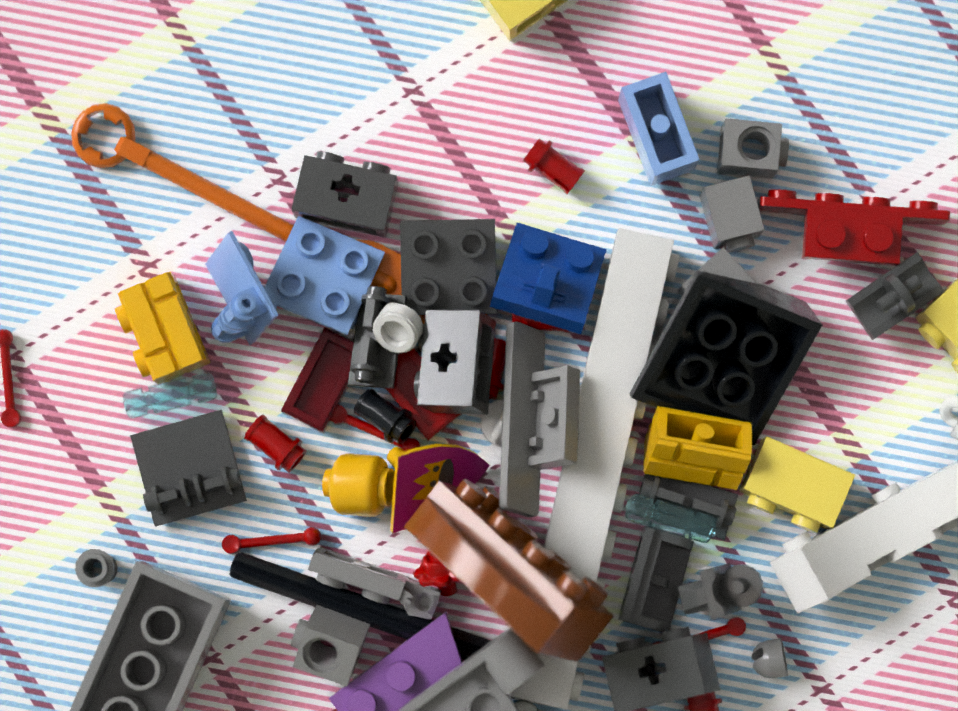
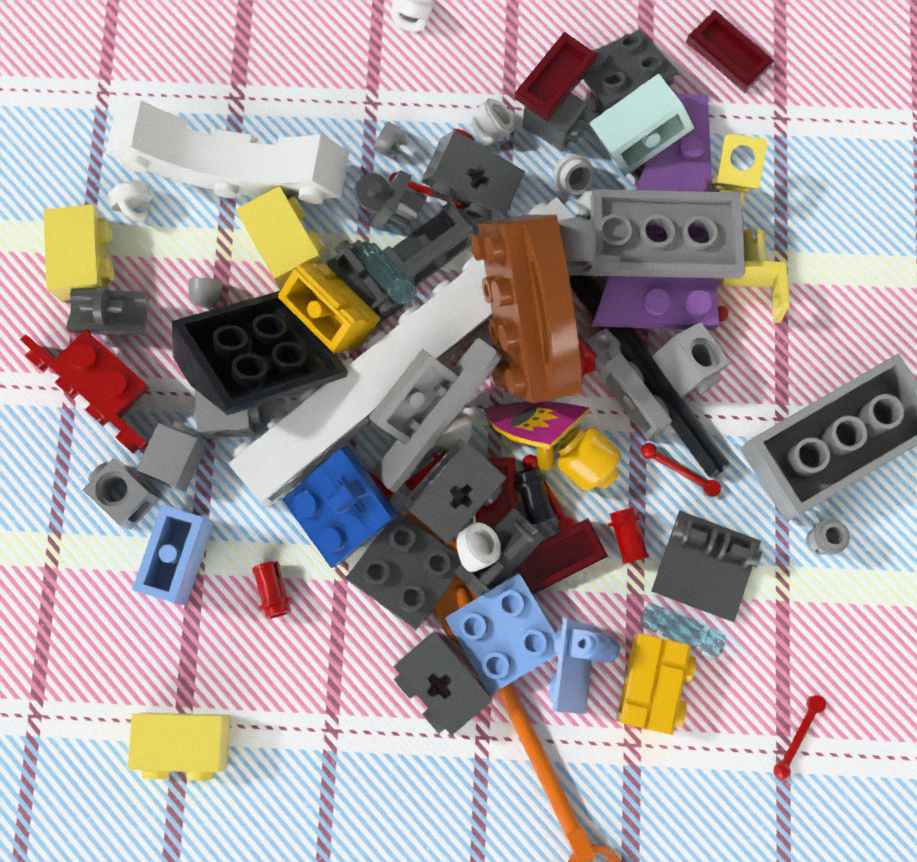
camera: 140 degrees left, 5 degrees down
(827, 384) = (205, 291): none -> light grey hinge

